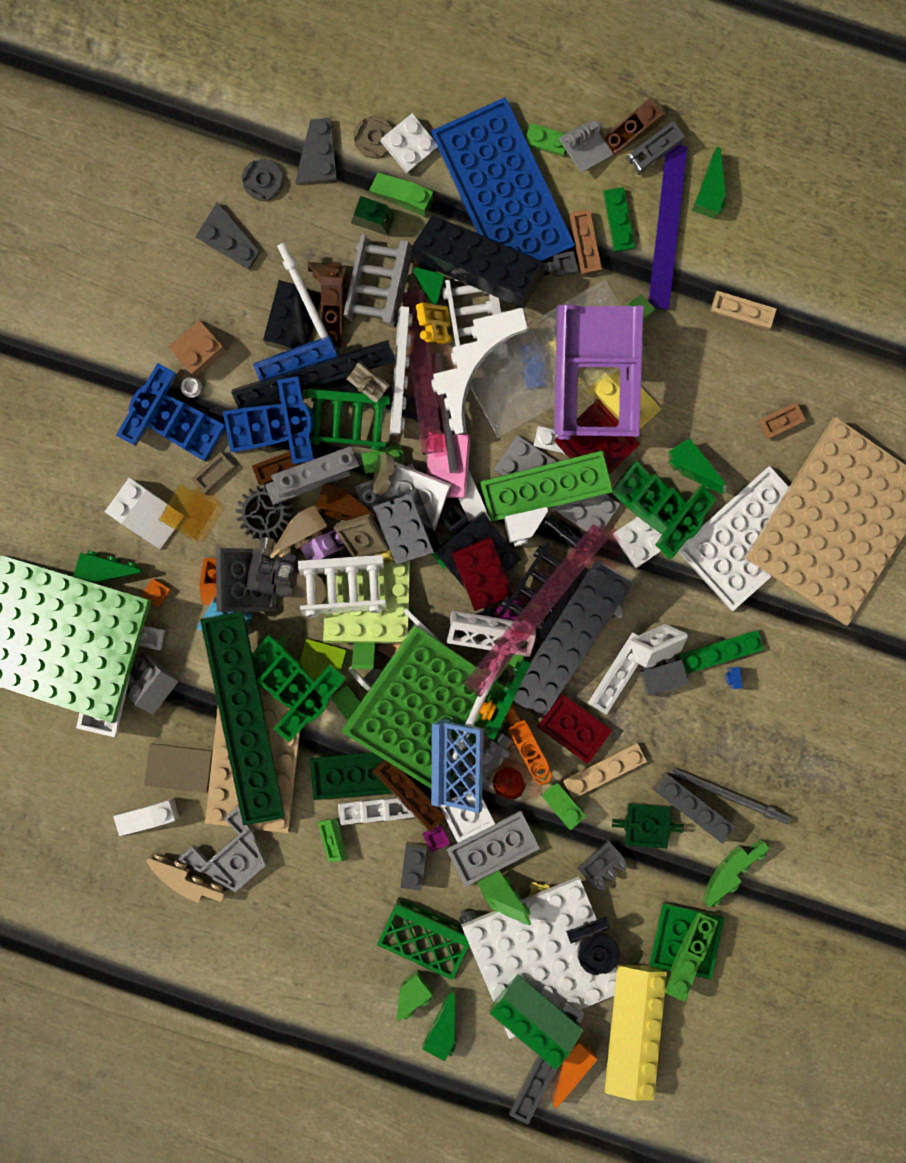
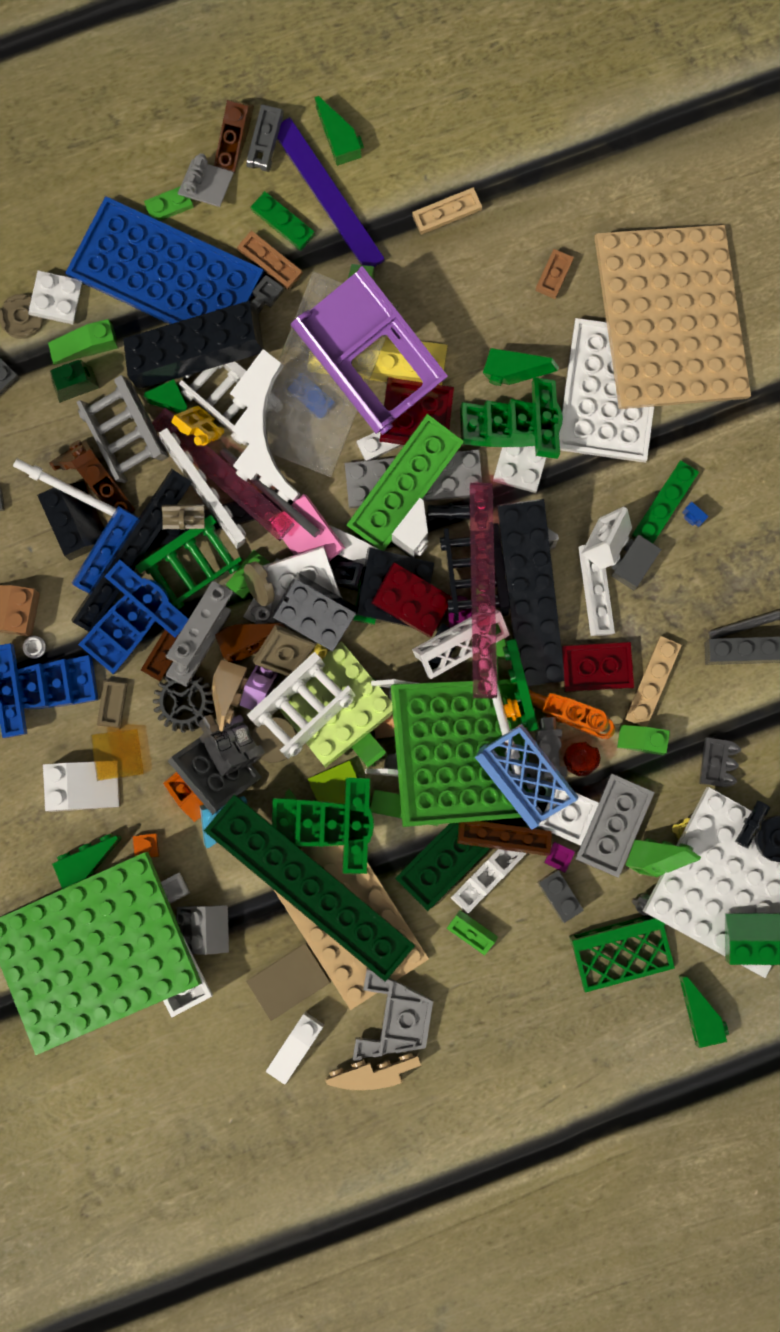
camera: 35 degrees left, 5 degrees down
(413, 993) = (651, 1008): bright green slope -> none
(647, 825) = (727, 697): dark green plate -> none

